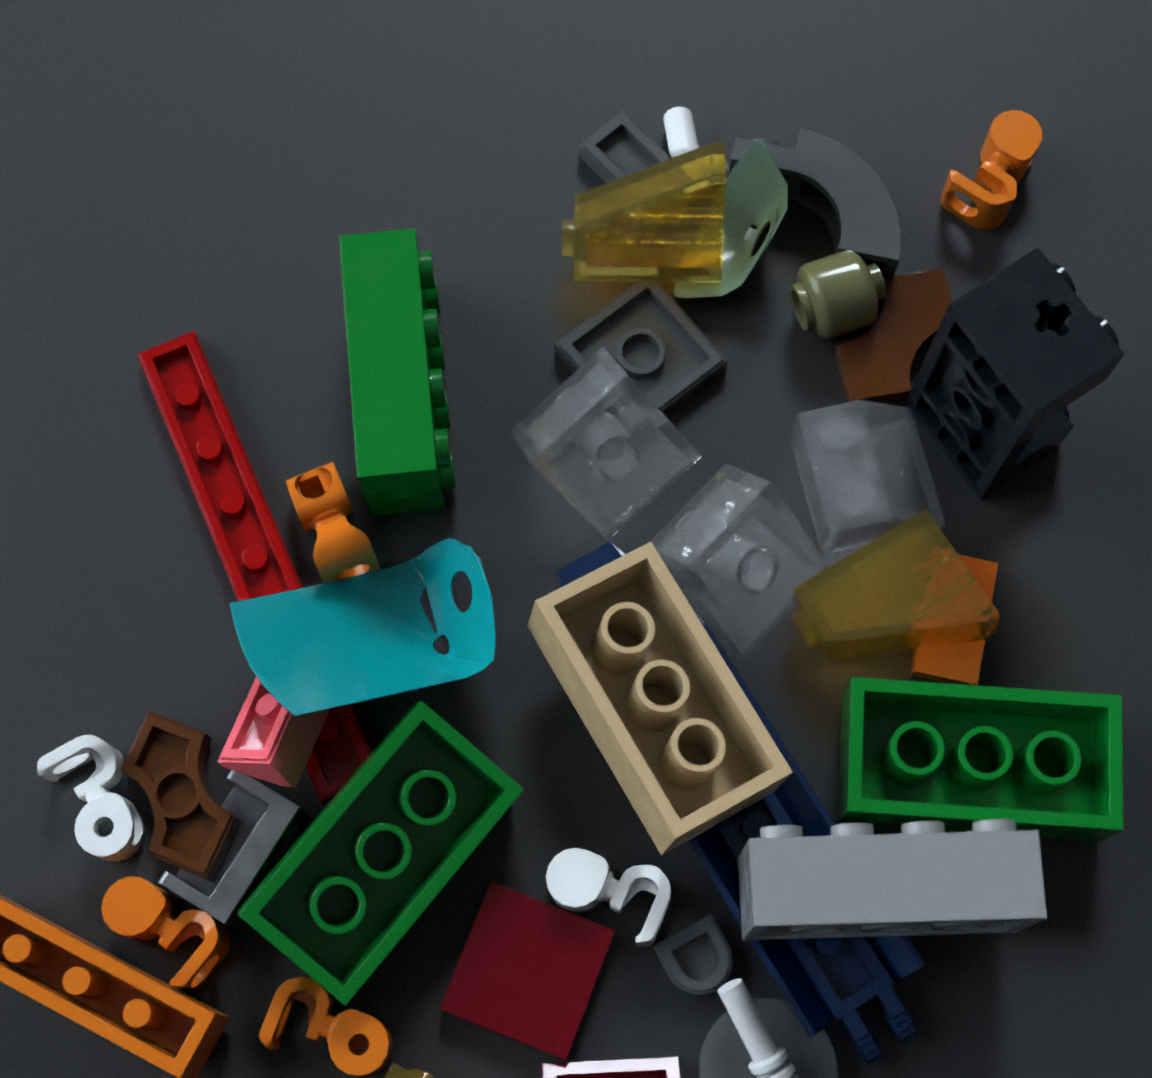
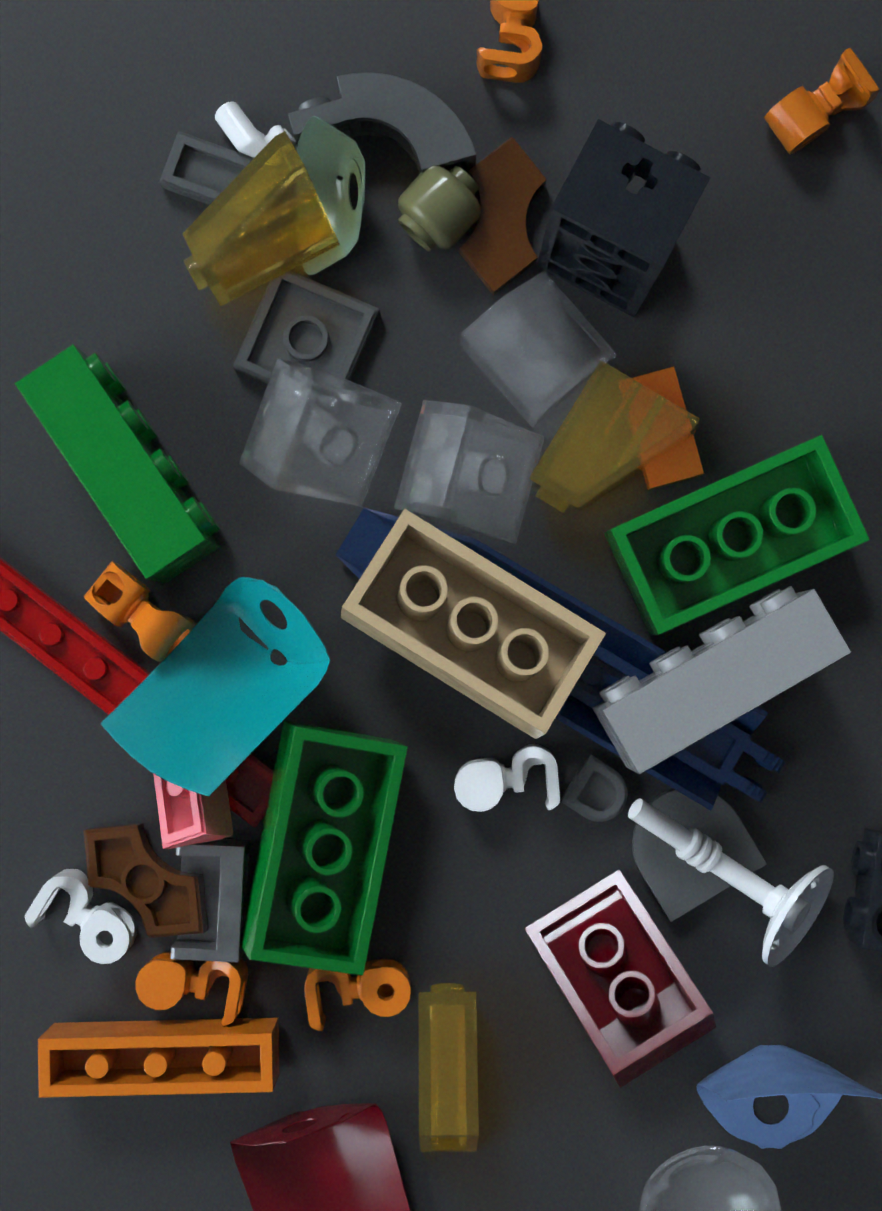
camera: 30 degrees left, 15 degrees up
(527, 970) = (477, 867): dark red tile -> none

